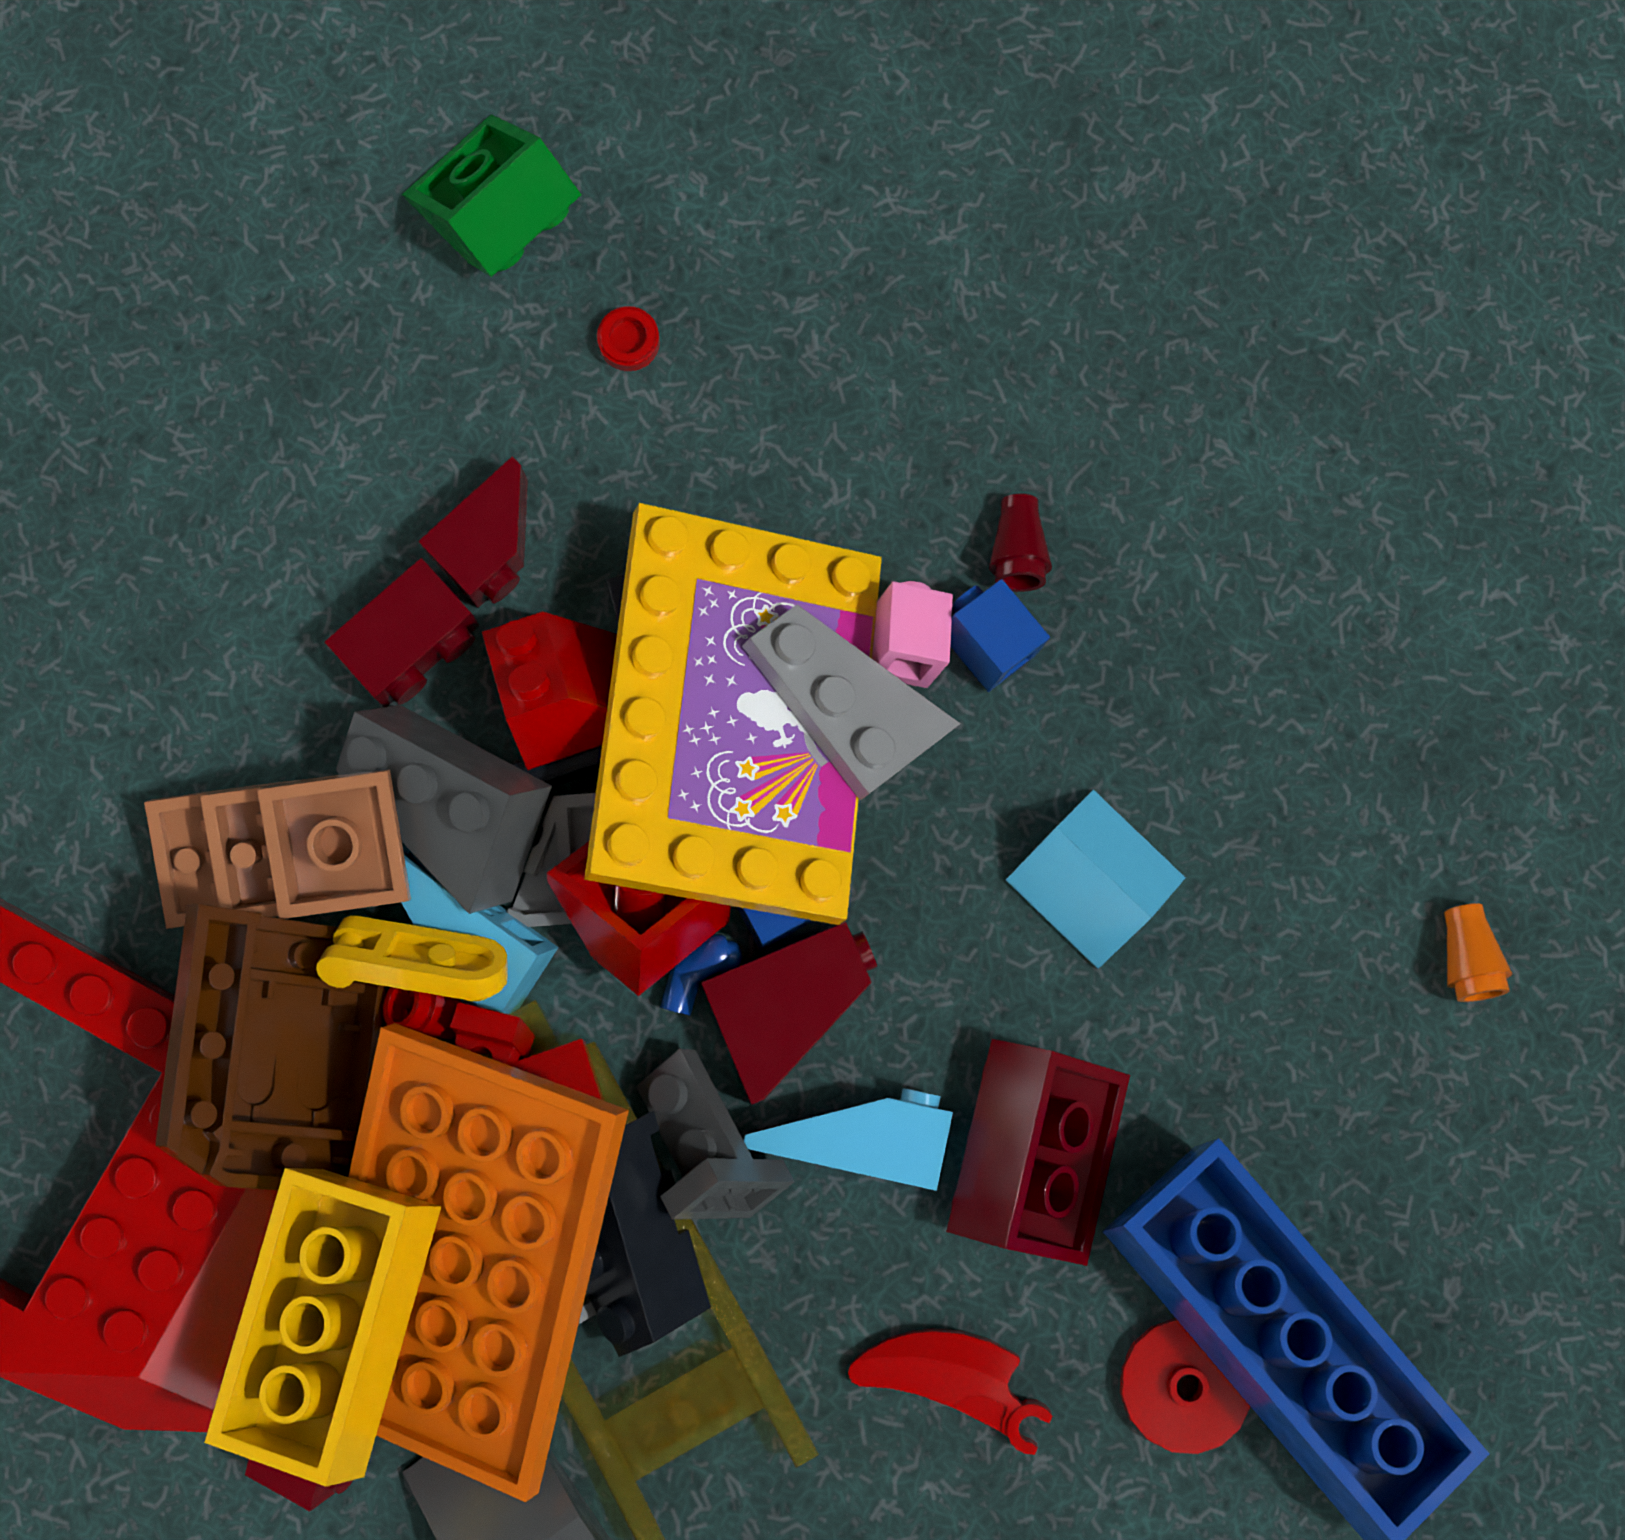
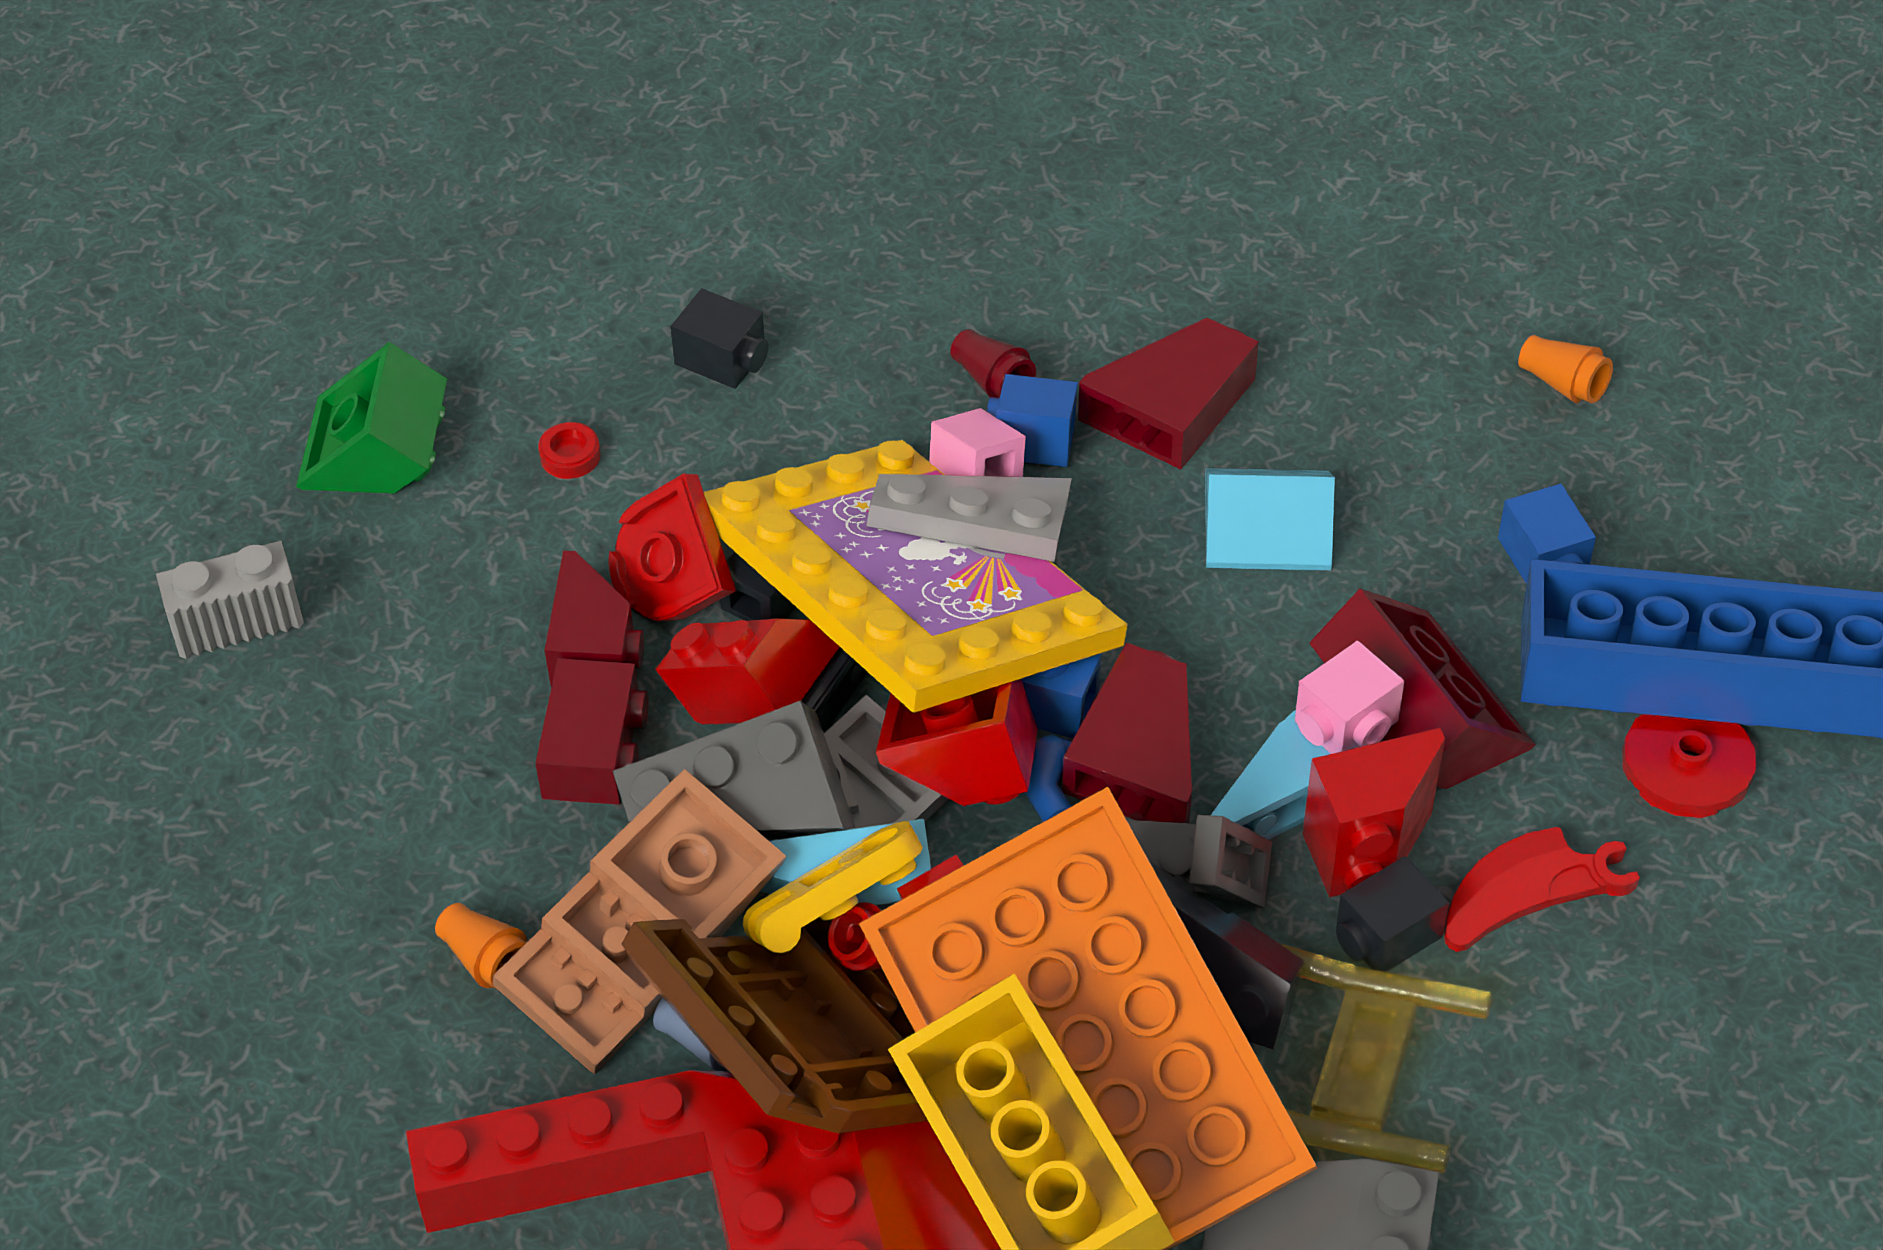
camera: 40 degrees left, 30 degrees down
(177, 754) = (478, 941): none -> orange cone
(250, 276) = (230, 598): none -> light grey brick
(589, 530) = (670, 553): none -> red tile
(815, 1321) = (1390, 916): none -> black brick
(829, 333) = (719, 339): none -> black brick
(874, 1242) = (1370, 806): none -> red slope
(936, 1146) = (1349, 701): none -> bright pink brick
(1134, 700) = (1171, 390): none -> dark red slope
(1278, 1107) = (1545, 528): none -> blue brick

